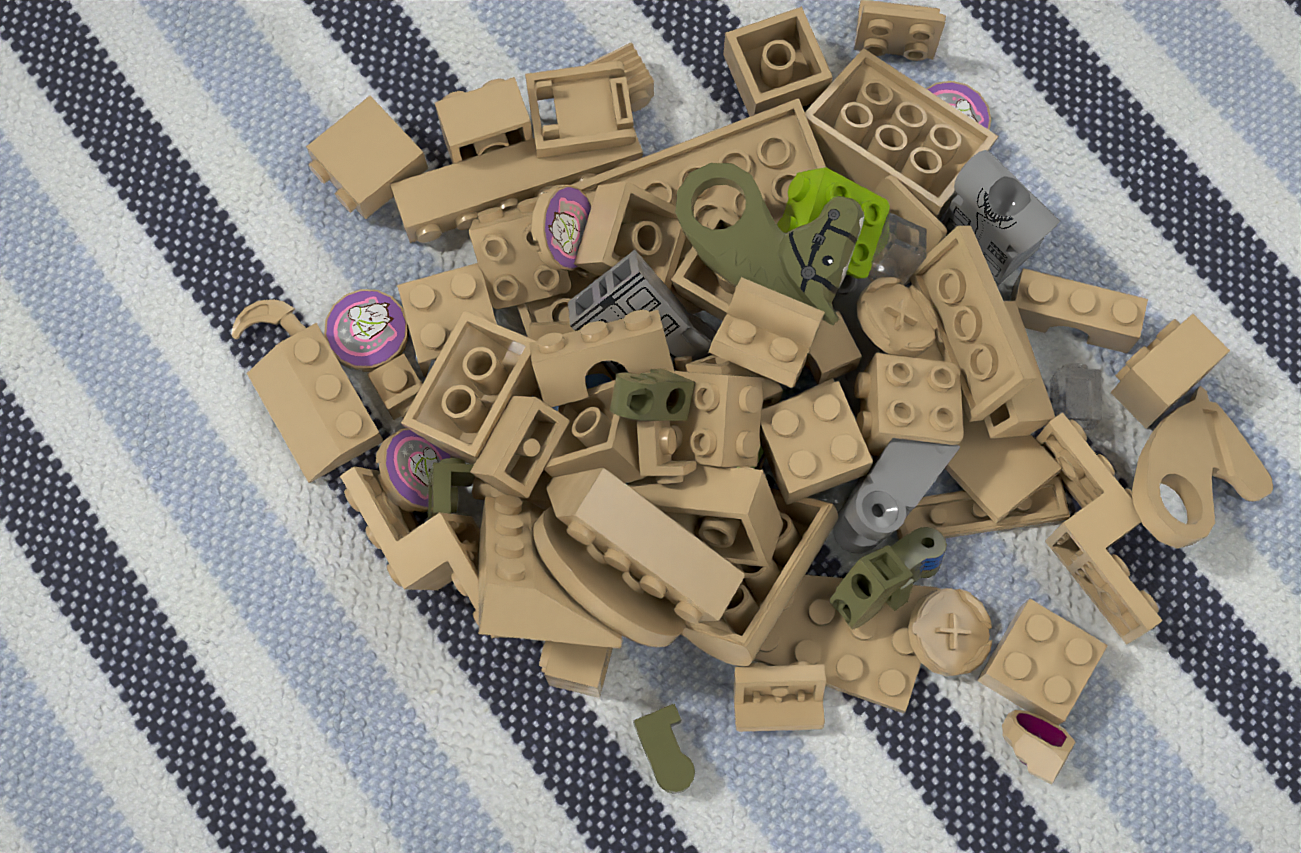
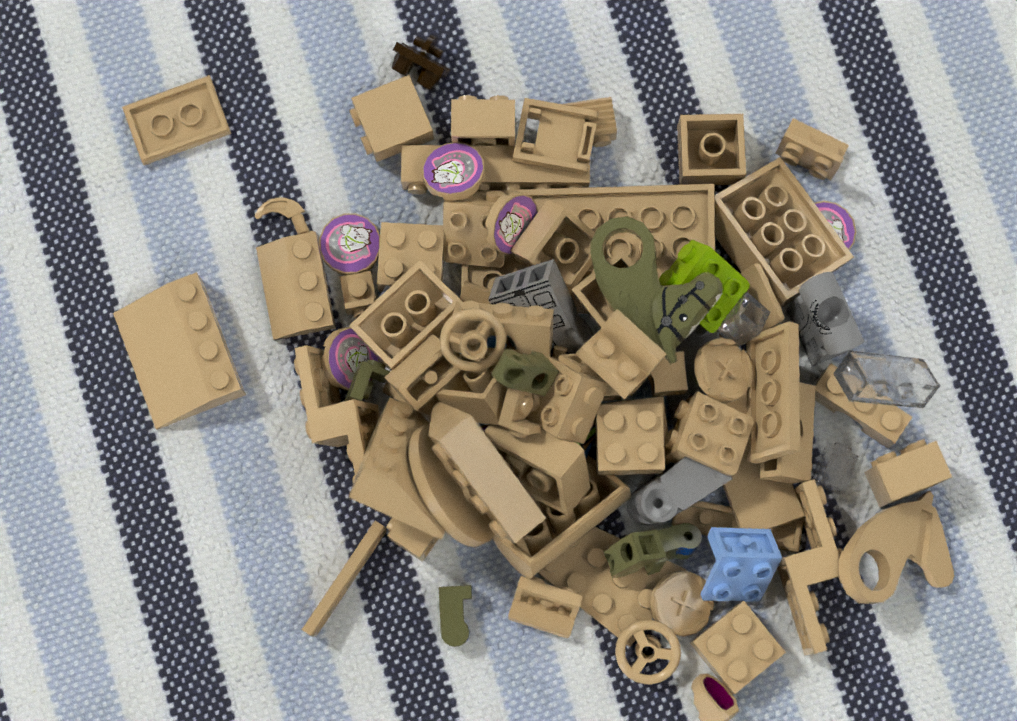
camera: 20 degrees right, 5 degrees up
(91, 252) = (176, 120): none -> tan tile
(188, 538) = (178, 351): none -> tan slope
(360, 78) = (408, 56): none -> dark brown hips
(468, 190) = (453, 171): none -> tile
(506, 755) = (344, 579): none -> tan tile
(582, 391) = (472, 352): none -> tan piece
(920, 696) = (637, 629): none -> tan piece
(1013, 554) = (743, 564): none -> light blue bracket
(1099, 264) = (886, 379): none -> clear brick

